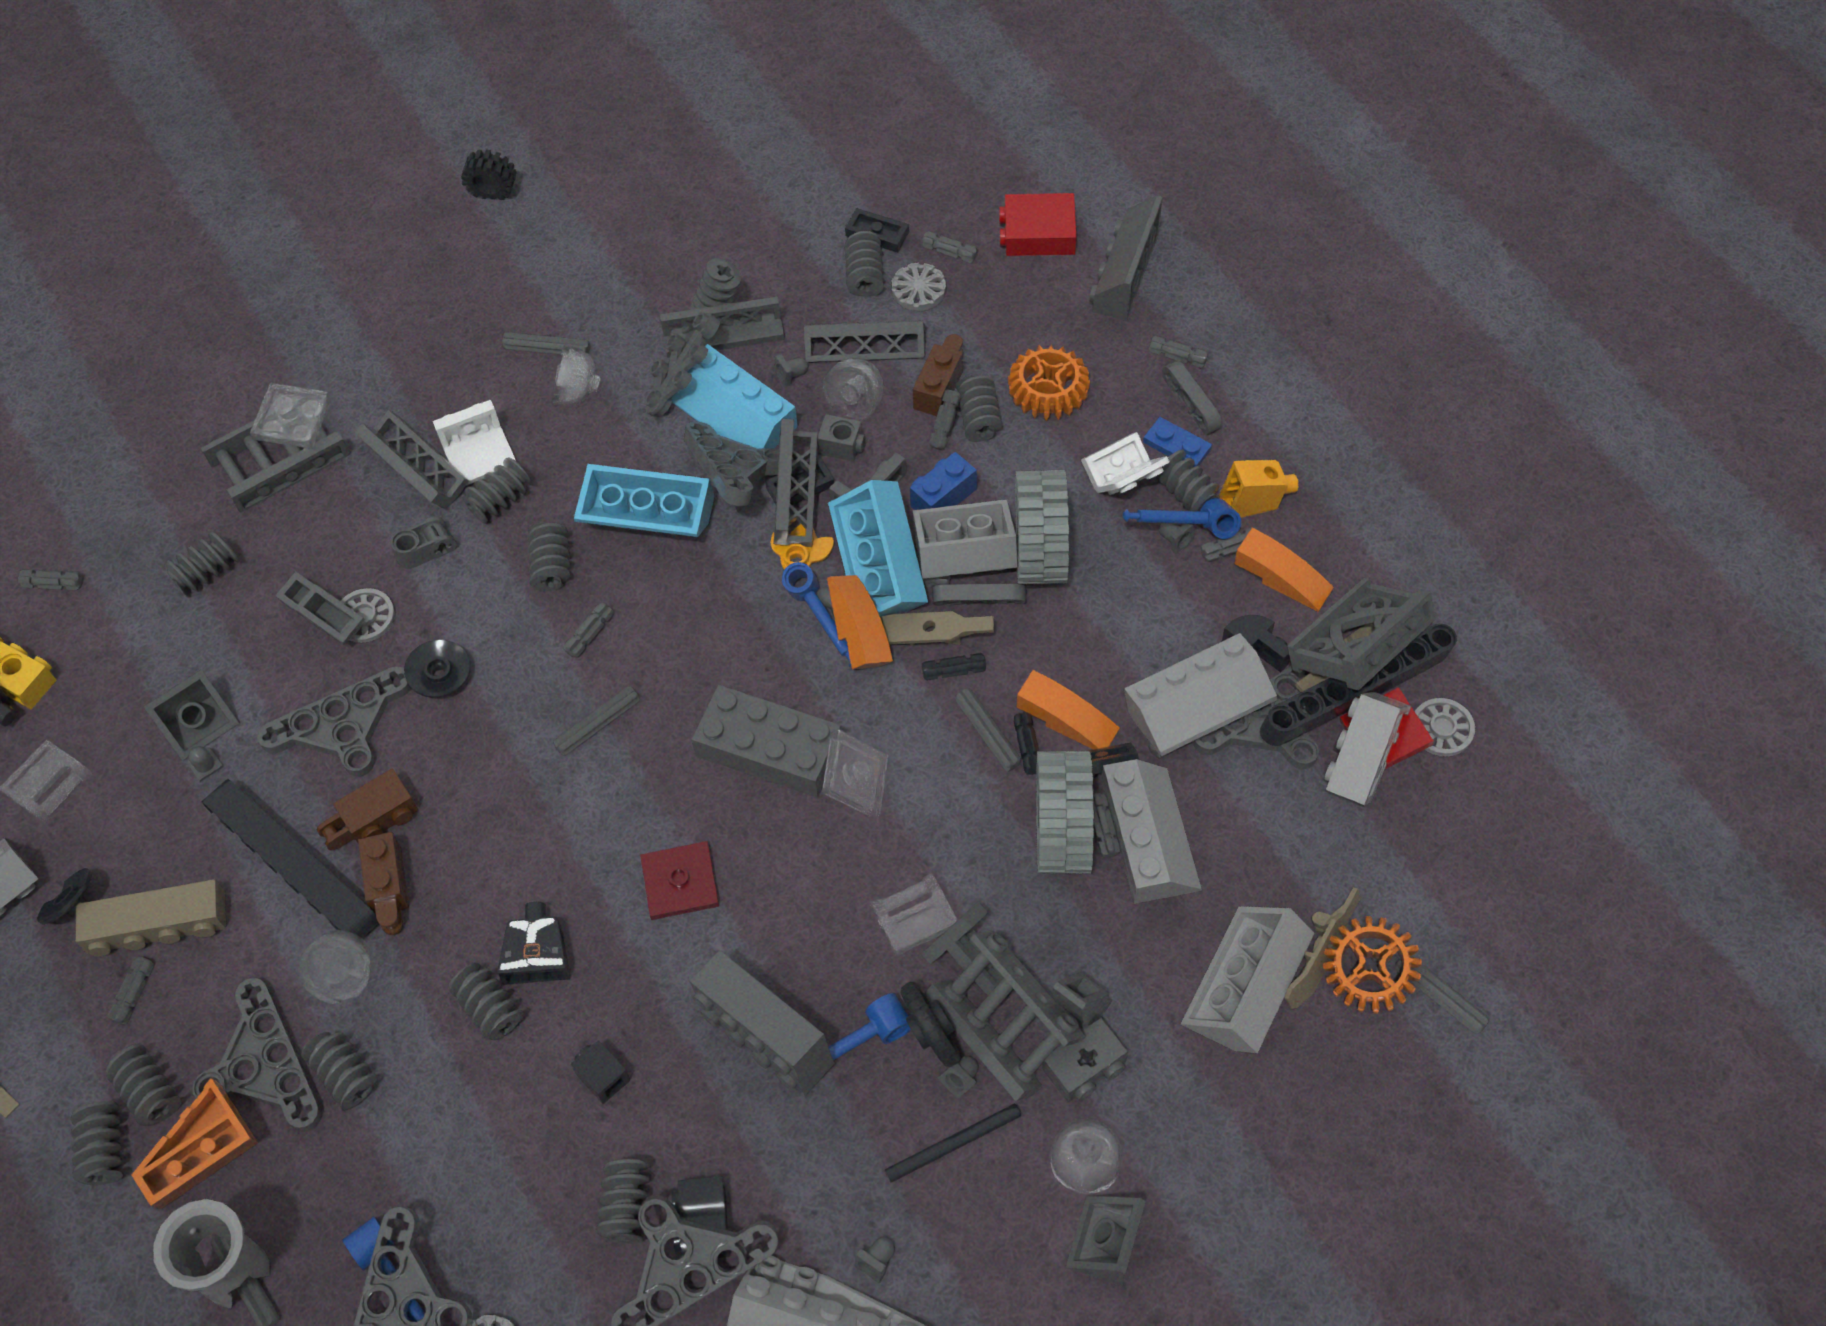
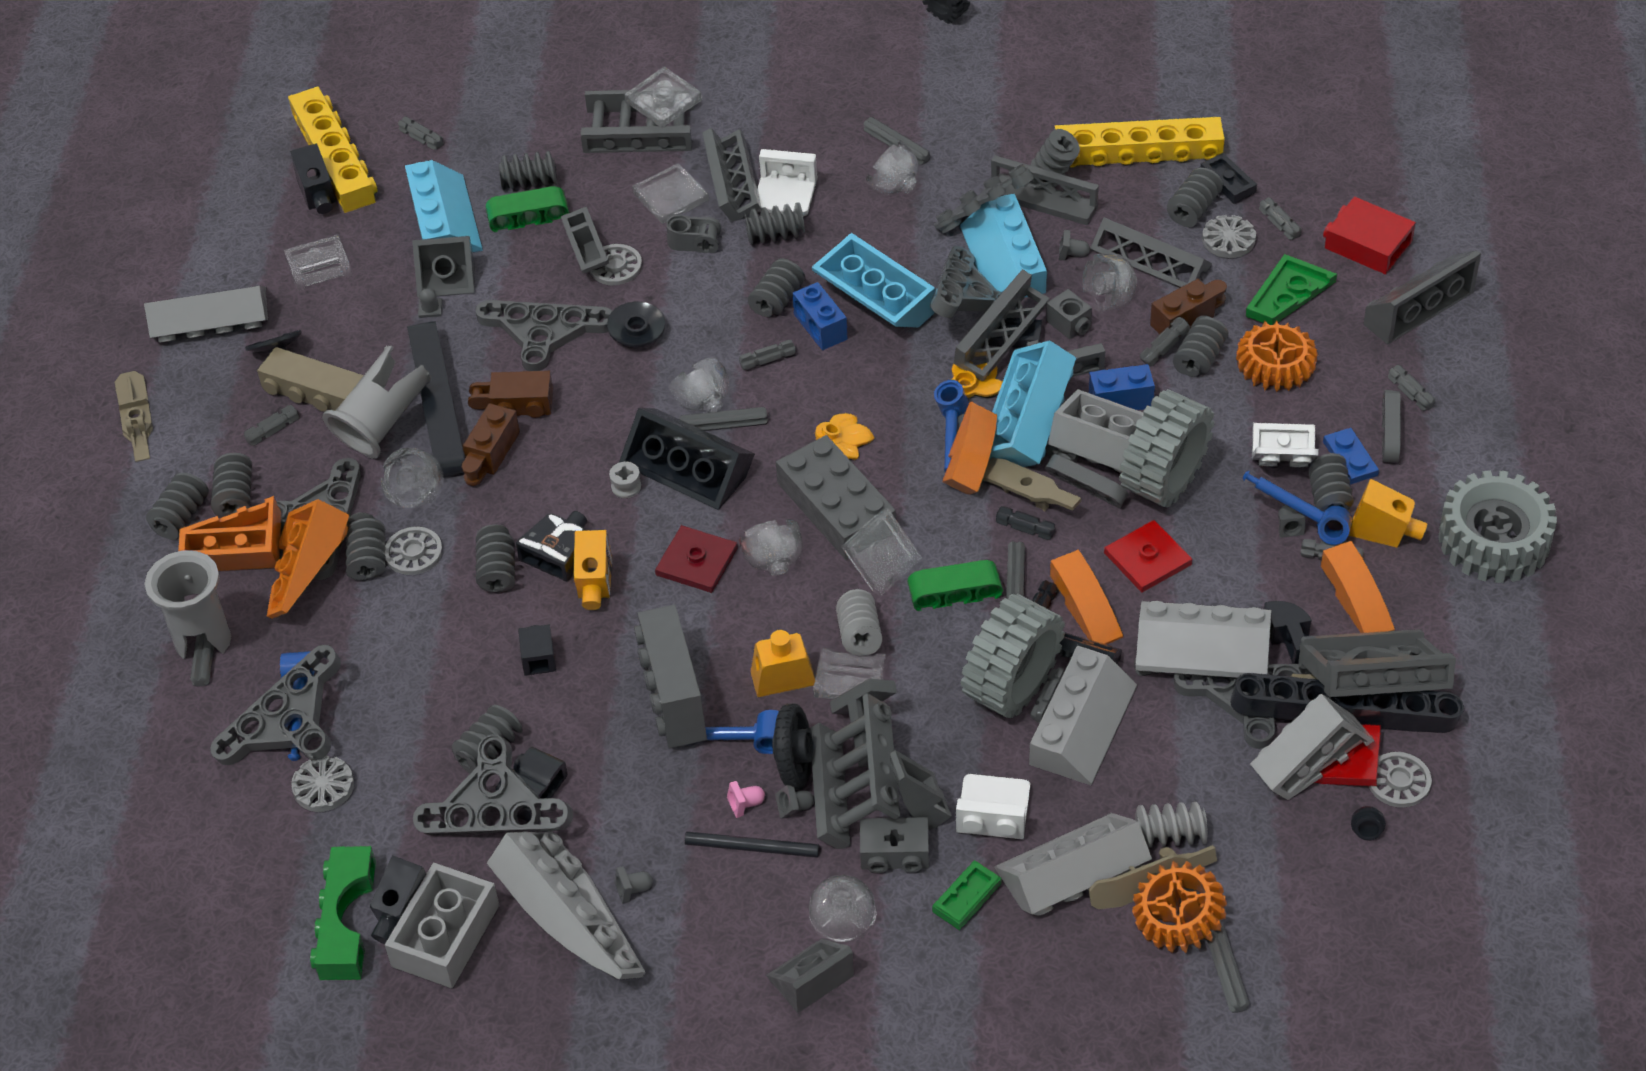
camera: 35 degrees right, 10 degrees down
(136, 648) = (441, 202): none -> medium azure slope
(229, 604) = (526, 208): none -> green beam
(239, 921) = (370, 409): none -> light grey piece
(282, 1105) = (307, 542): none -> orange wedge
(365, 511) = (670, 193): none -> clear plate
(388, 1039) = (413, 550): none -> light grey wheel
(550, 847) = (625, 479): none -> light grey wheel
(557, 701) = (702, 388): none -> clear cylinder
(580, 939) = (592, 551): none -> light orange torso
(591, 782) = (685, 457): none -> black slope
(612, 563) = (820, 316): none -> blue brick
(725, 669) = (845, 433): none -> light orange plate
(751, 829) = (772, 546): none -> clear cylinder
(780, 228) = (1147, 141): none -> yellow brick
(852, 943) = (781, 664): none -> light orange torso
(889, 858) = (859, 622): none -> light grey piece
(912, 1102) = (744, 798): none -> bright pink piece
(940, 765) = (954, 584): none -> green beam
(1008, 312) = (1287, 289): none -> green wing
(1082, 637) = (1148, 556): none -> red plate
(1139, 966) = (993, 806): none -> white bracket
(1182, 1069) = (966, 895): none -> green plate
(1304, 885) = (1172, 824): none -> light grey piece
(1336, 427) = (1499, 507): none -> light grey wheel
(1453, 784) = (1368, 822): none -> black plate

